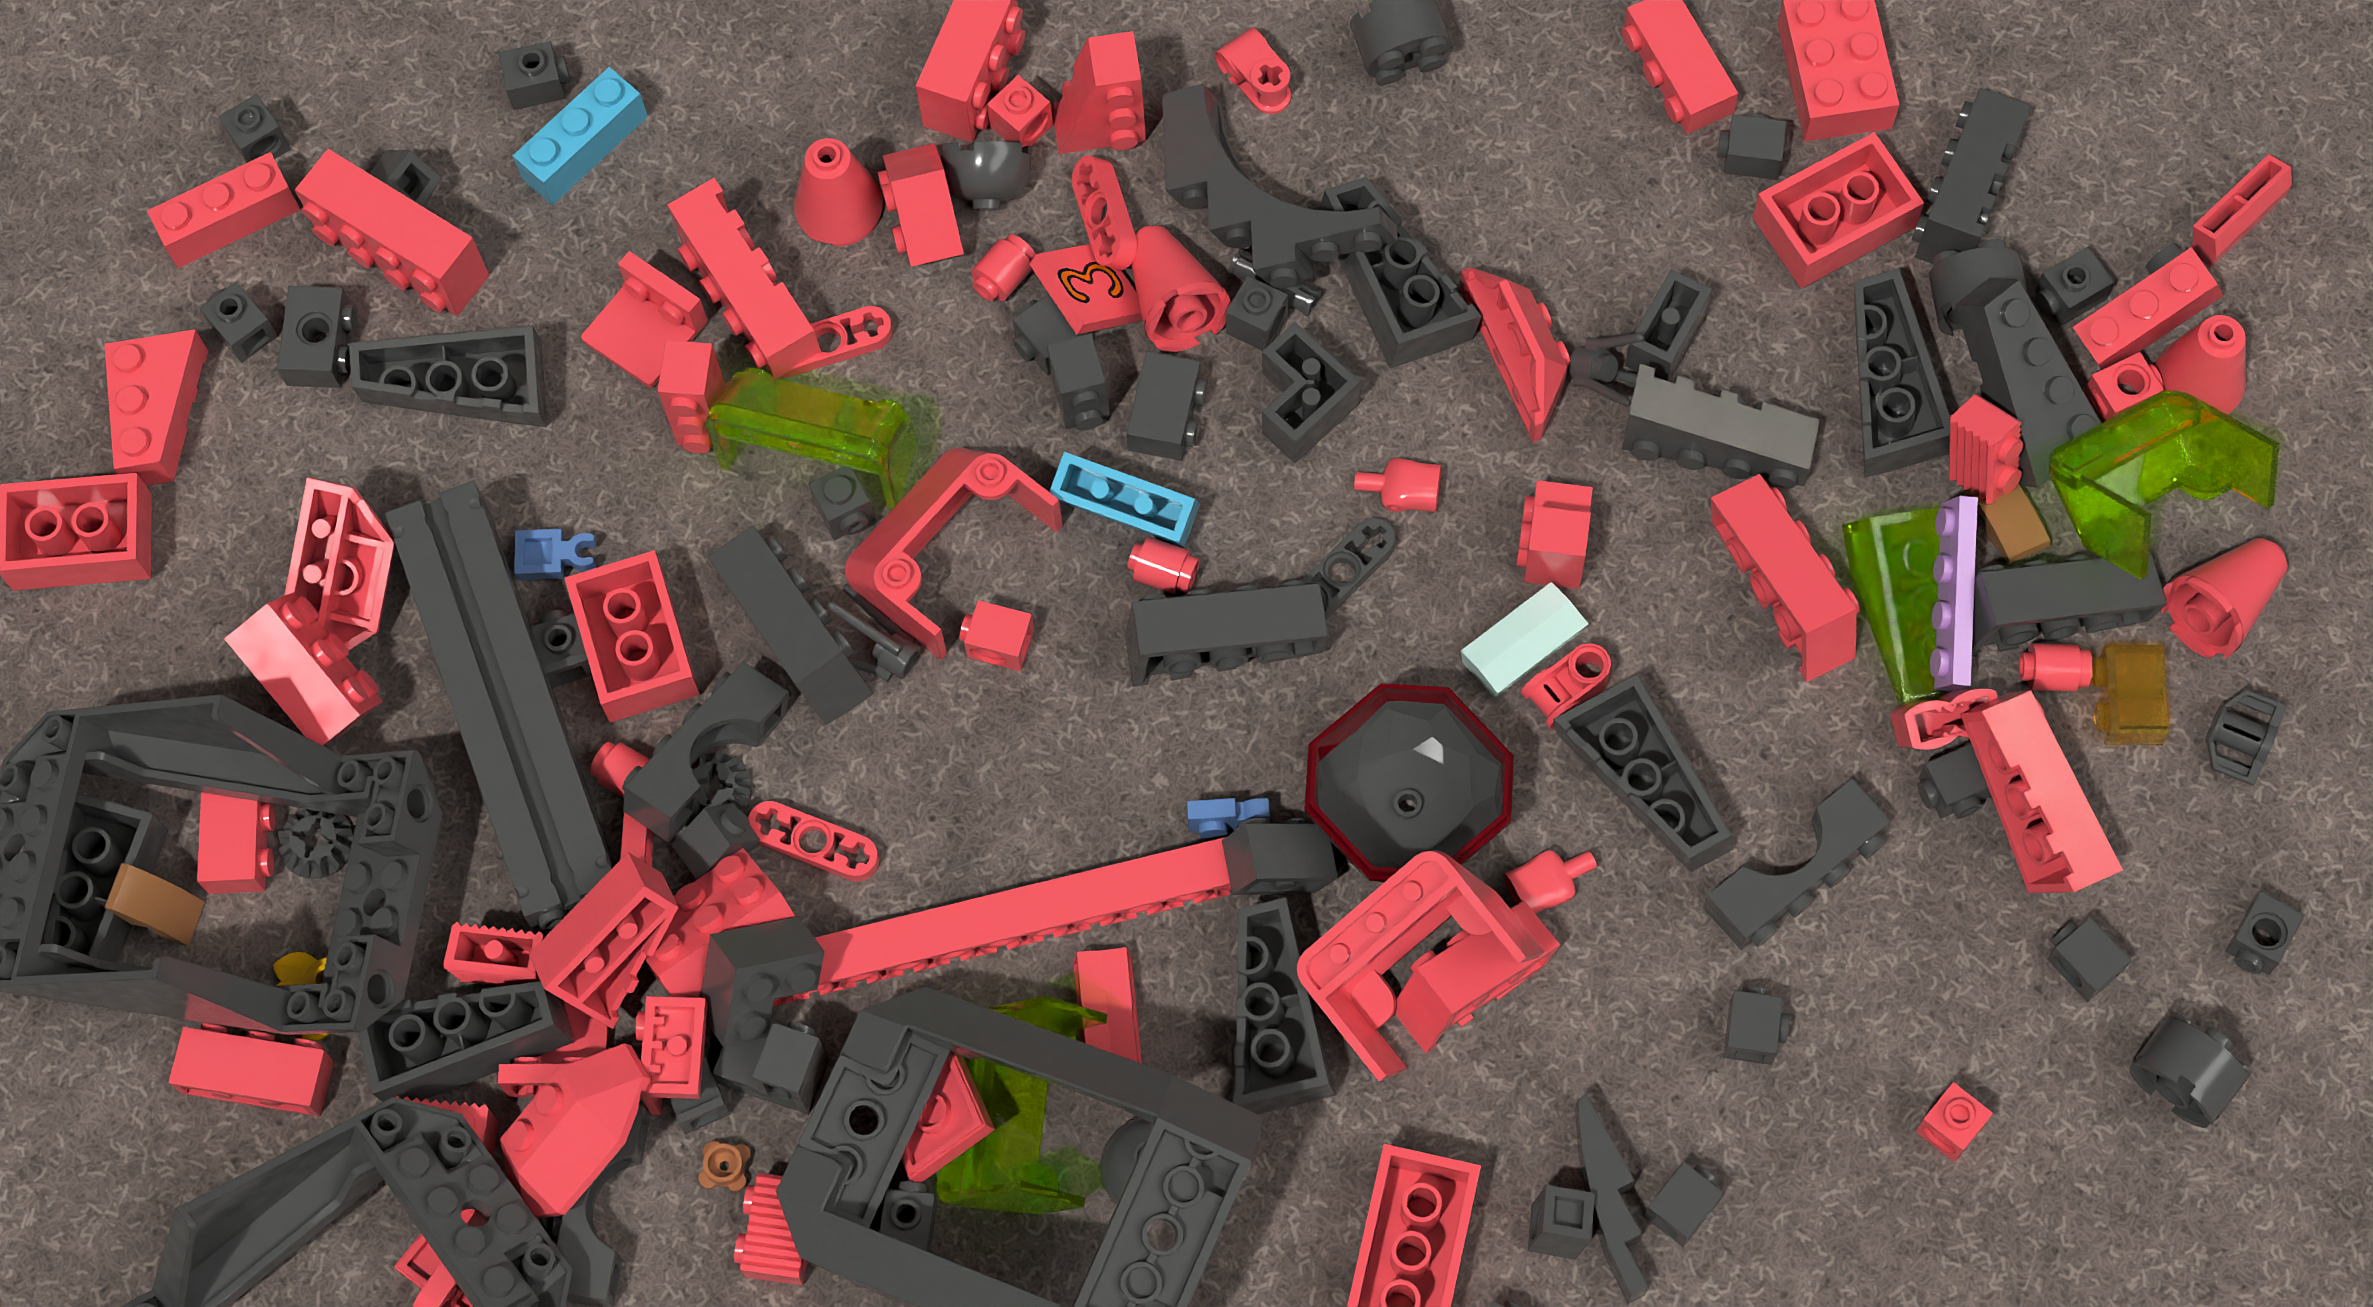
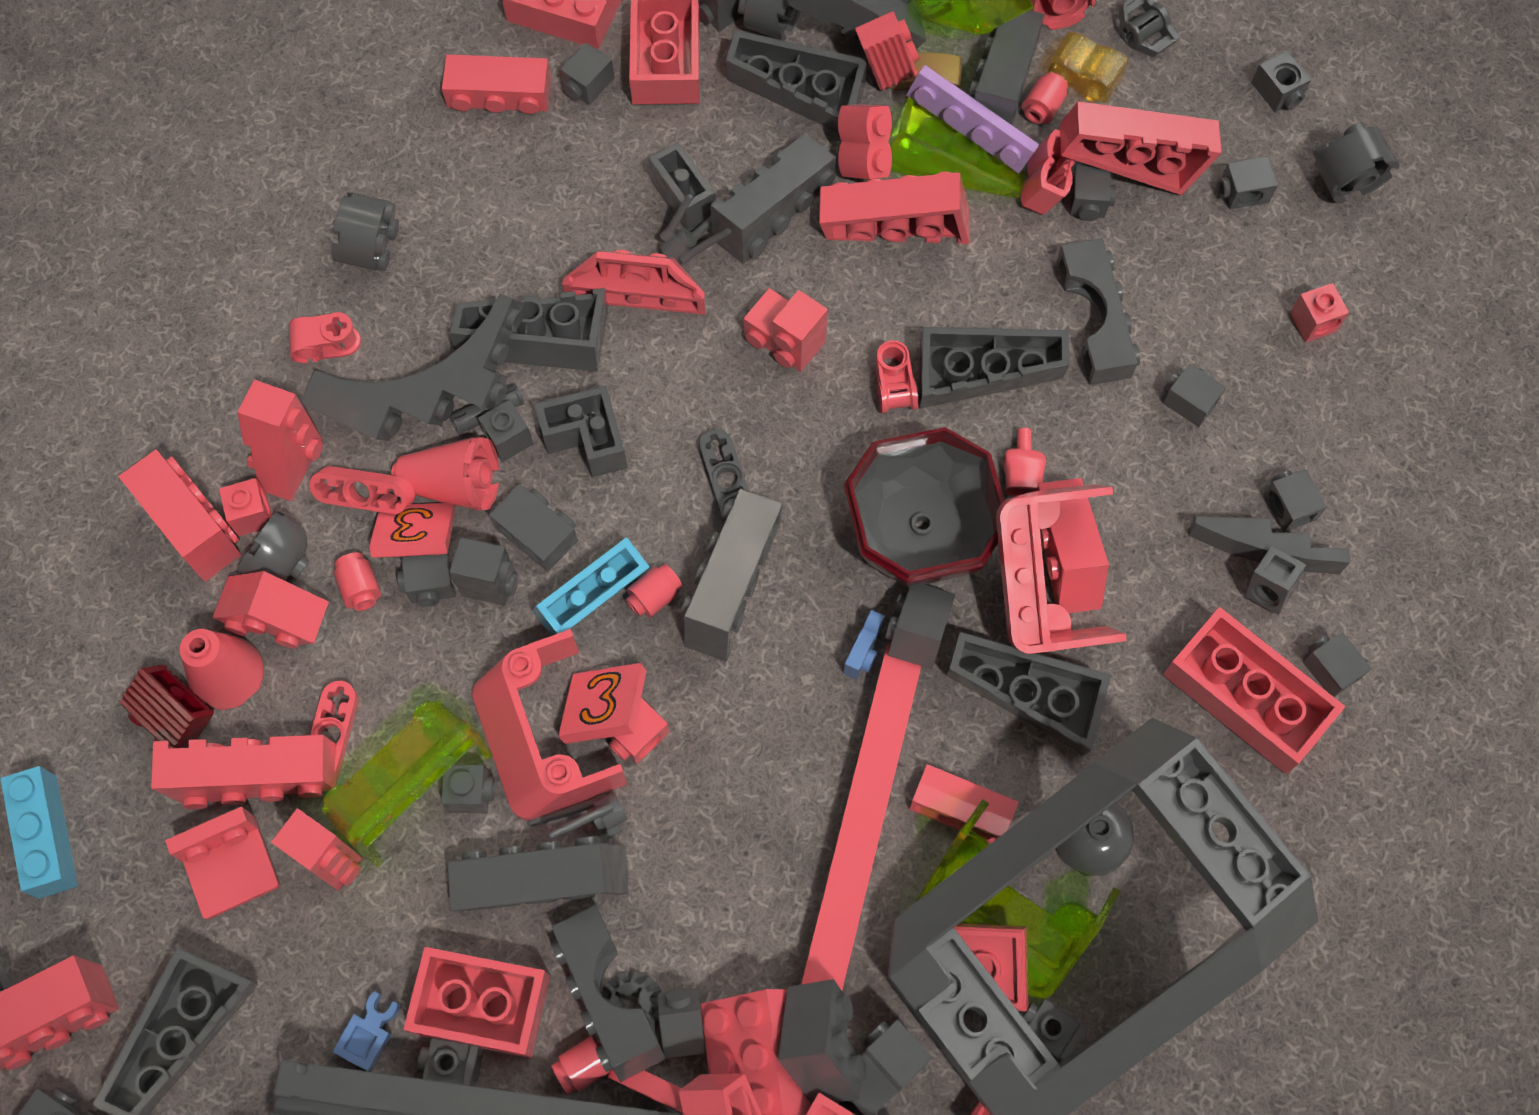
camera: 65 degrees left, 0 degrees up
(765, 171) = (165, 707): none -> dark red brick
(850, 841) = (716, 933): coral beam -> none
(1004, 581) = (602, 703): none -> coral tile
(1404, 485) = (688, 406): coral piece -> none
(1523, 639) = (847, 391): light aqua piece -> none
(1849, 487) = (865, 140): none -> coral brick

